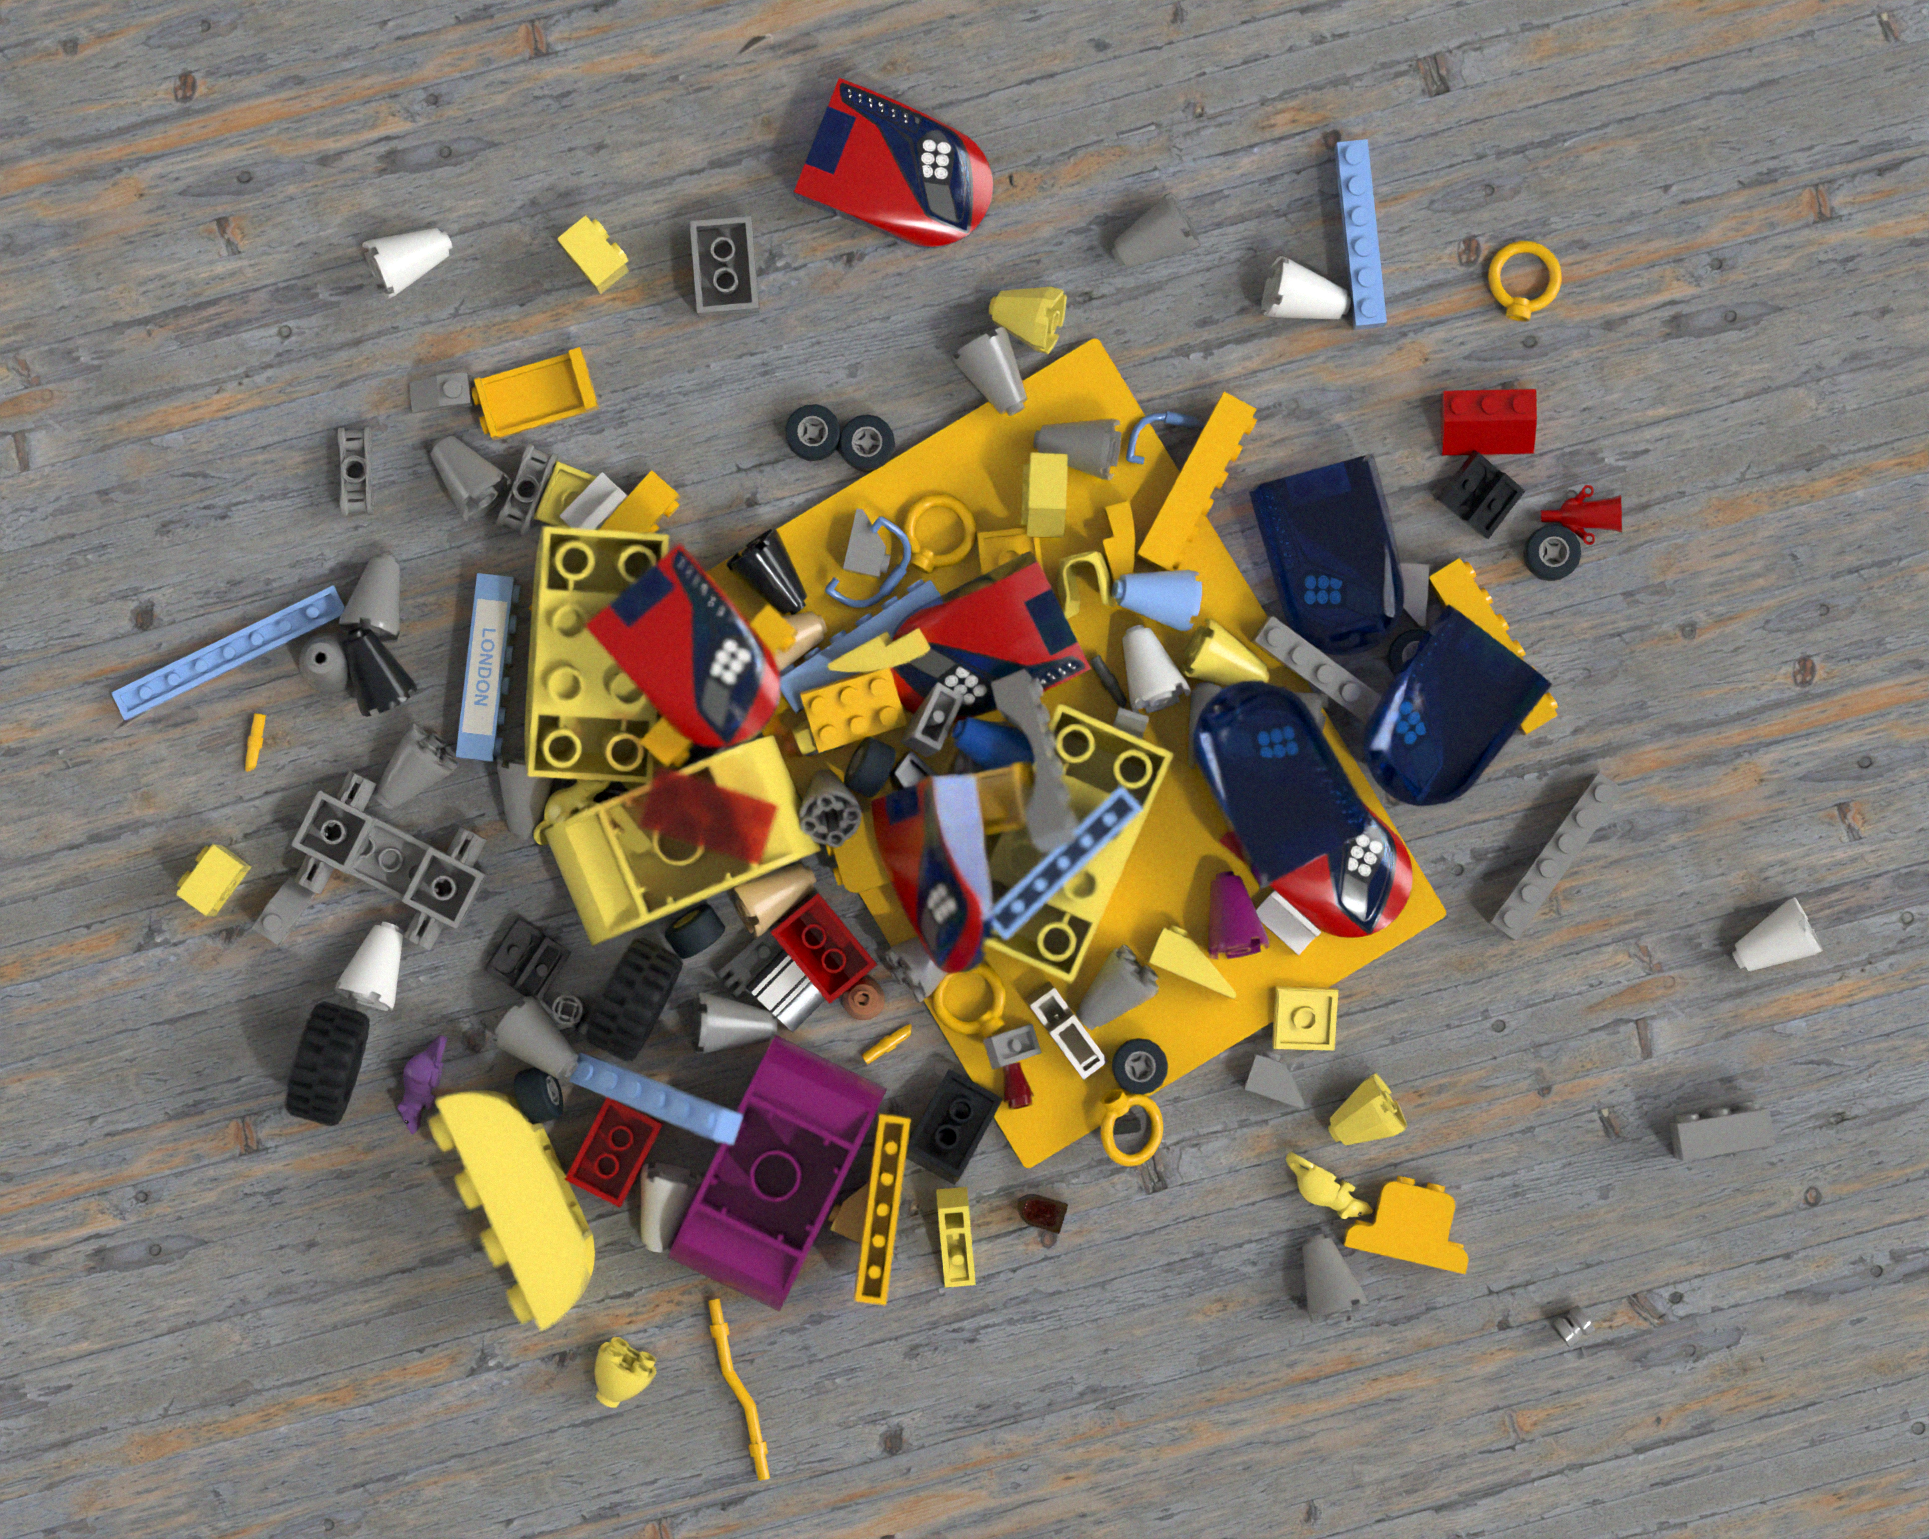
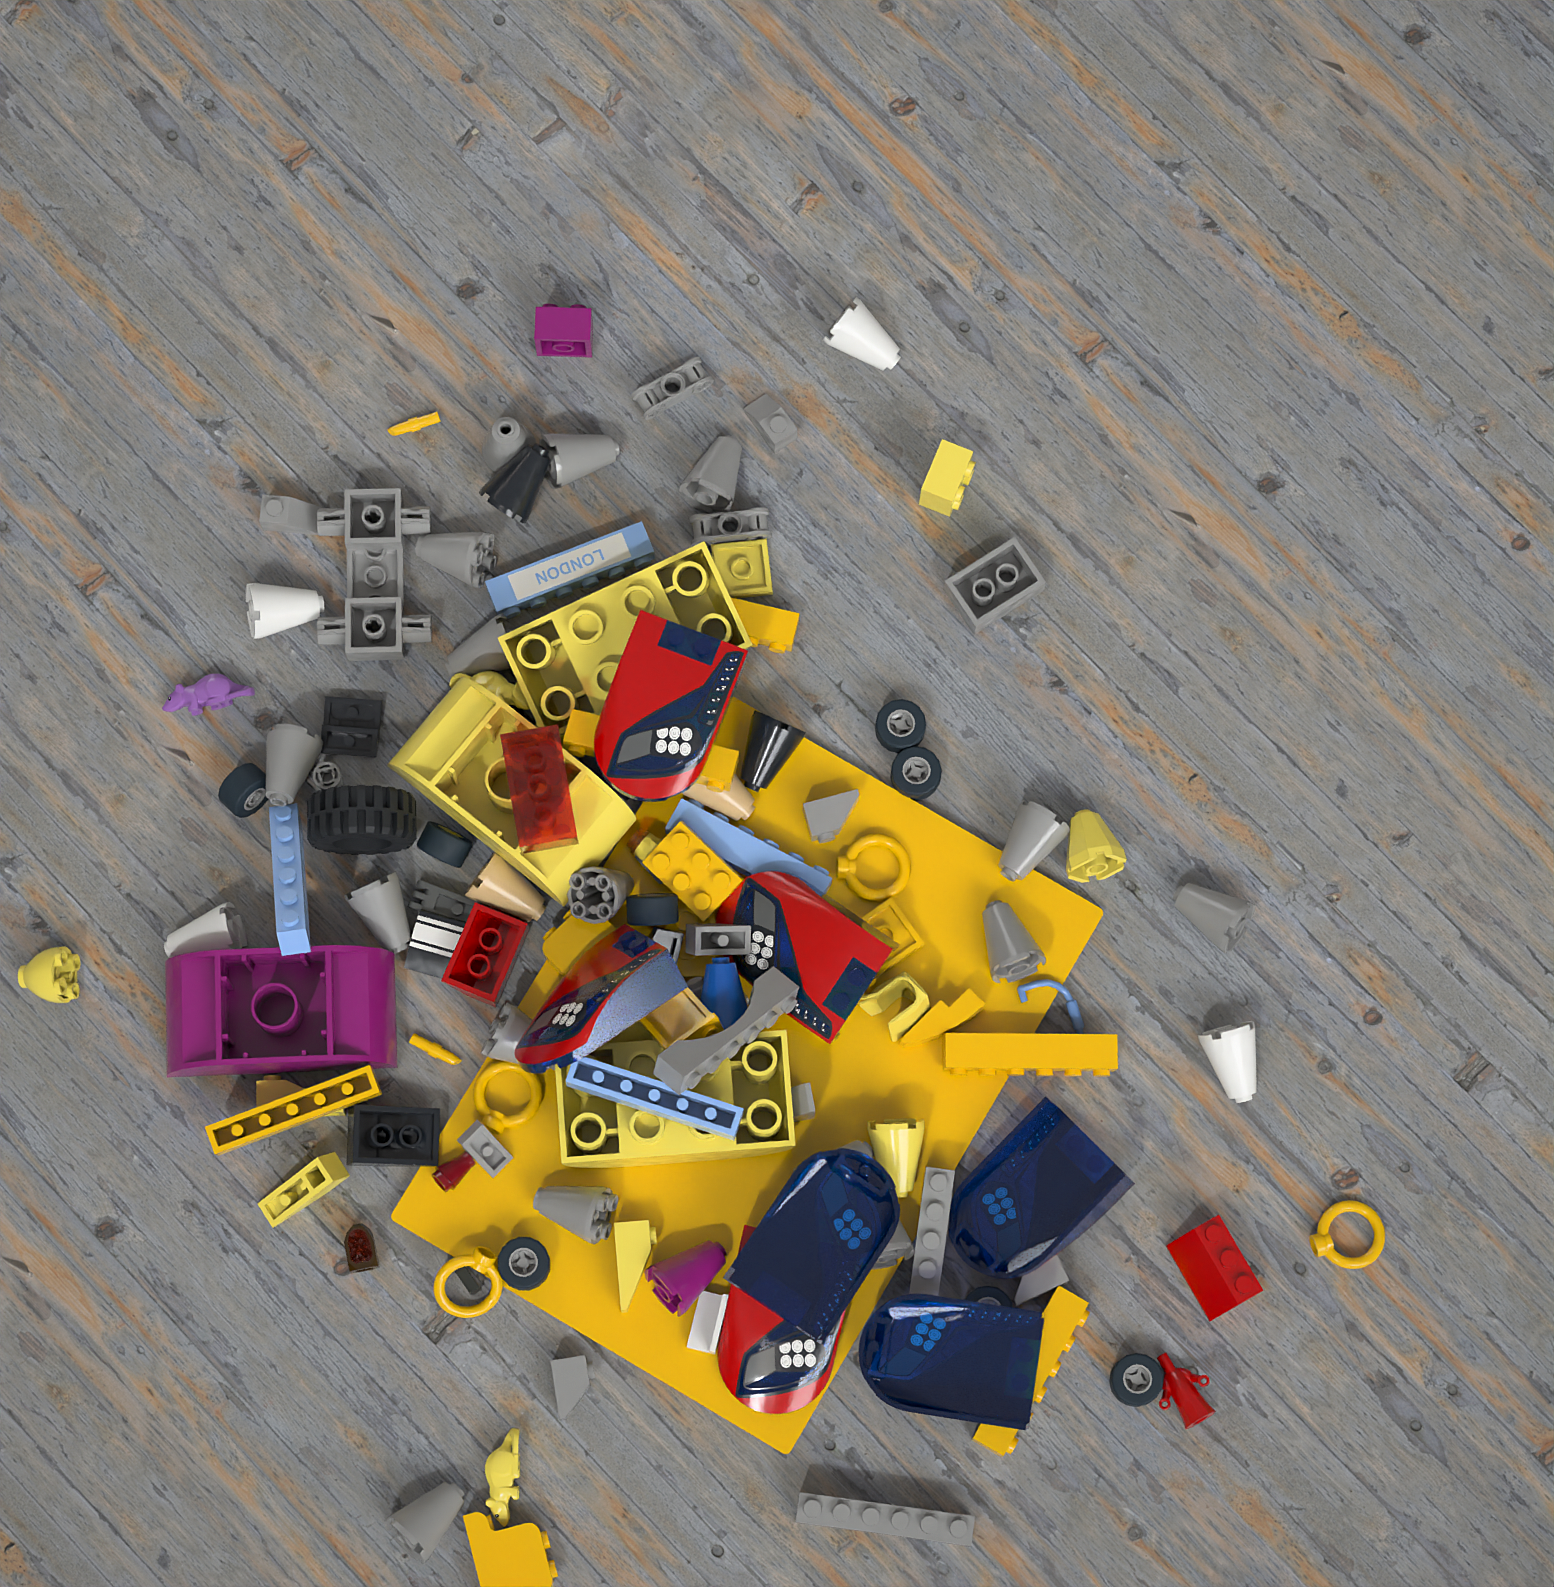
camera: 60 degrees right, 10 degrees down
(212, 879) = (285, 445): light yellow brick -> none
(229, 653) = (473, 367): light blue plate -> none
(242, 546) = (563, 331): none -> magenta brick
(327, 1063) = (182, 606): black tyre -> none
(525, 1197) = (150, 821): light yellow brick -> none
(535, 395) = (809, 494): yellow panel -> none
(594, 504) = (748, 584): white panel -> none
(614, 1151) = (229, 874): red brick -> none
(757, 1447) = (46, 1119): yellow bar -> none
(873, 1003) = (461, 1019): nougat cone -> none
(882, 653) = (750, 867): light yellow slope -> none
(891, 581) = (817, 851): medium blue piece -> none
(895, 170) = (1147, 678): windscreen -> none
(1044, 495) = (951, 932): light yellow brick -> none
(1066, 1030) = (522, 1187): dark tan slope -> none
(1109, 681) = (828, 1069): dark grey piece -> none
(1150, 672) = (853, 1098): white cone -> none
(1161, 596) = (920, 1069): light blue cone -> none
(1305, 1018) = (637, 1381): light yellow tile -> none
(1360, 234) = (1308, 1079): light blue brick -> none
(1367, 1114) = (584, 1476): light yellow cone -> none
(1480, 494) = (1151, 1295): black slope -> none

